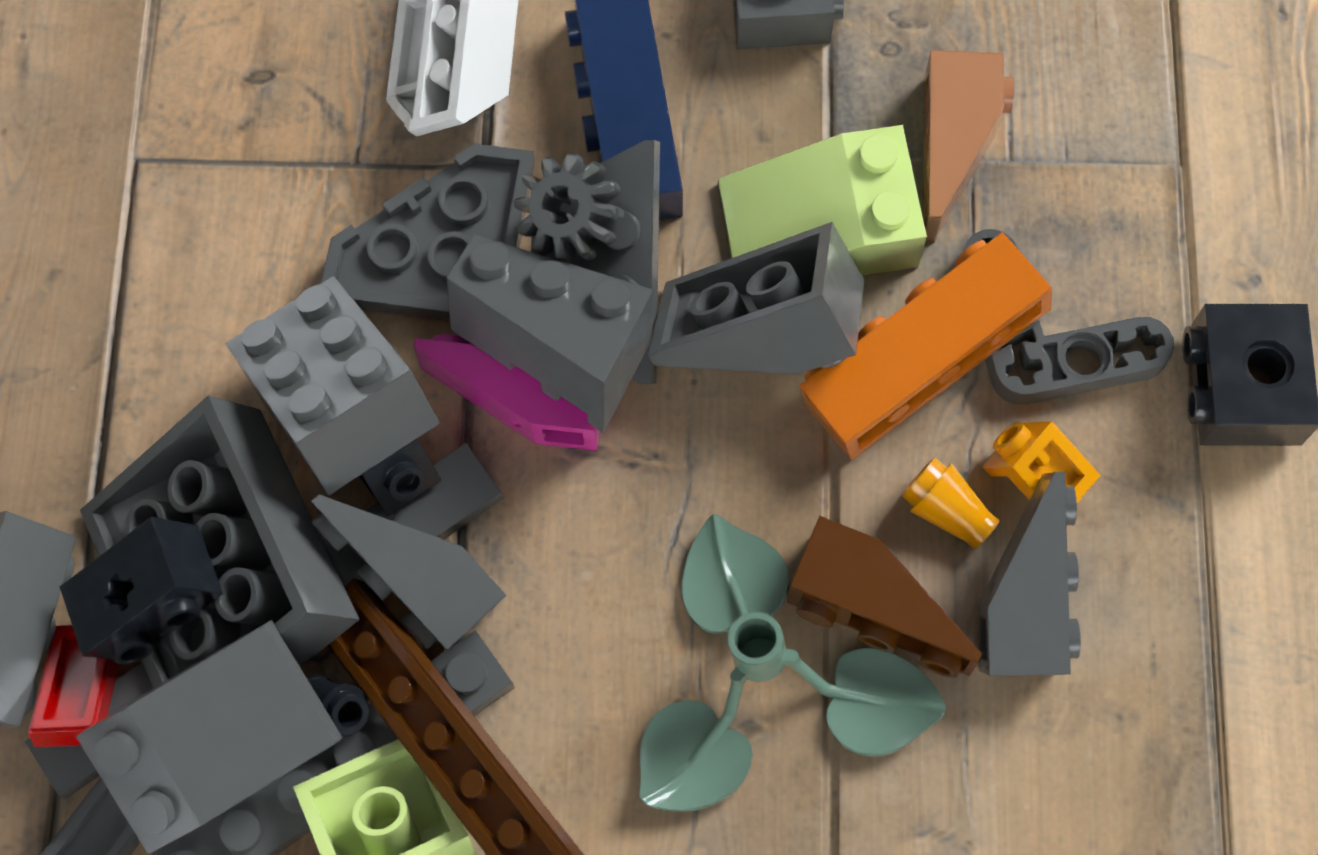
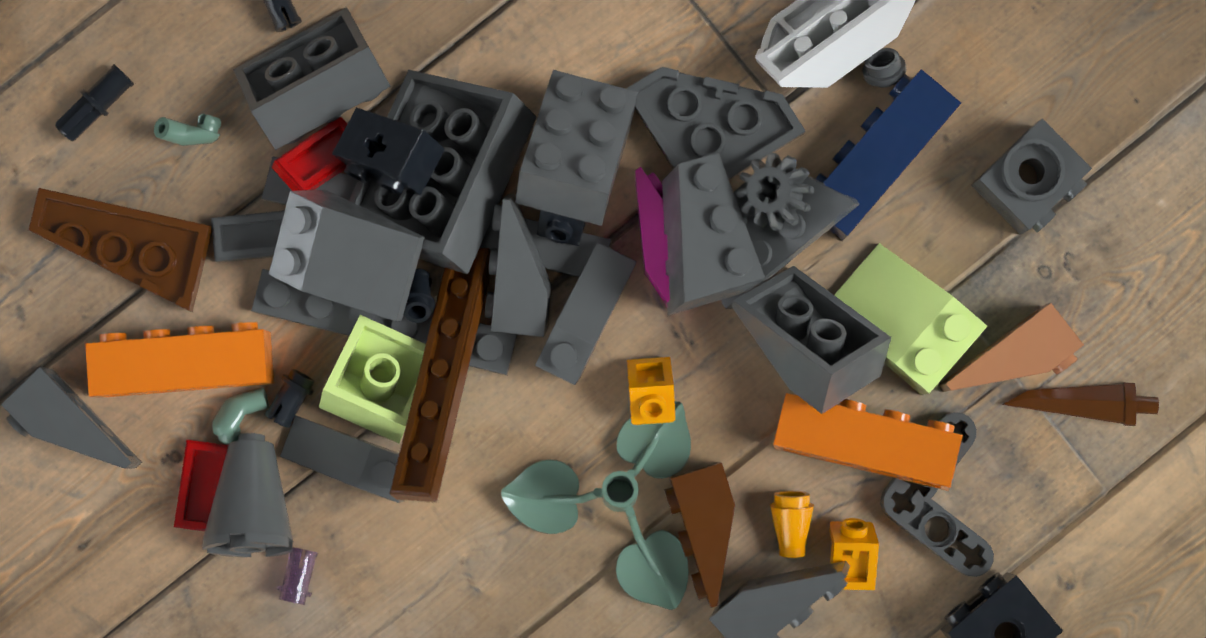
camera: 50 degrees right, 15 degrees up
(523, 532) = (586, 314): none -> dark grey slope
(540, 29) = (884, 68): none -> dark grey plate
(674, 531) = (651, 390): none -> light orange bracket
(1077, 97) = (1102, 403): none -> reddish brown bar

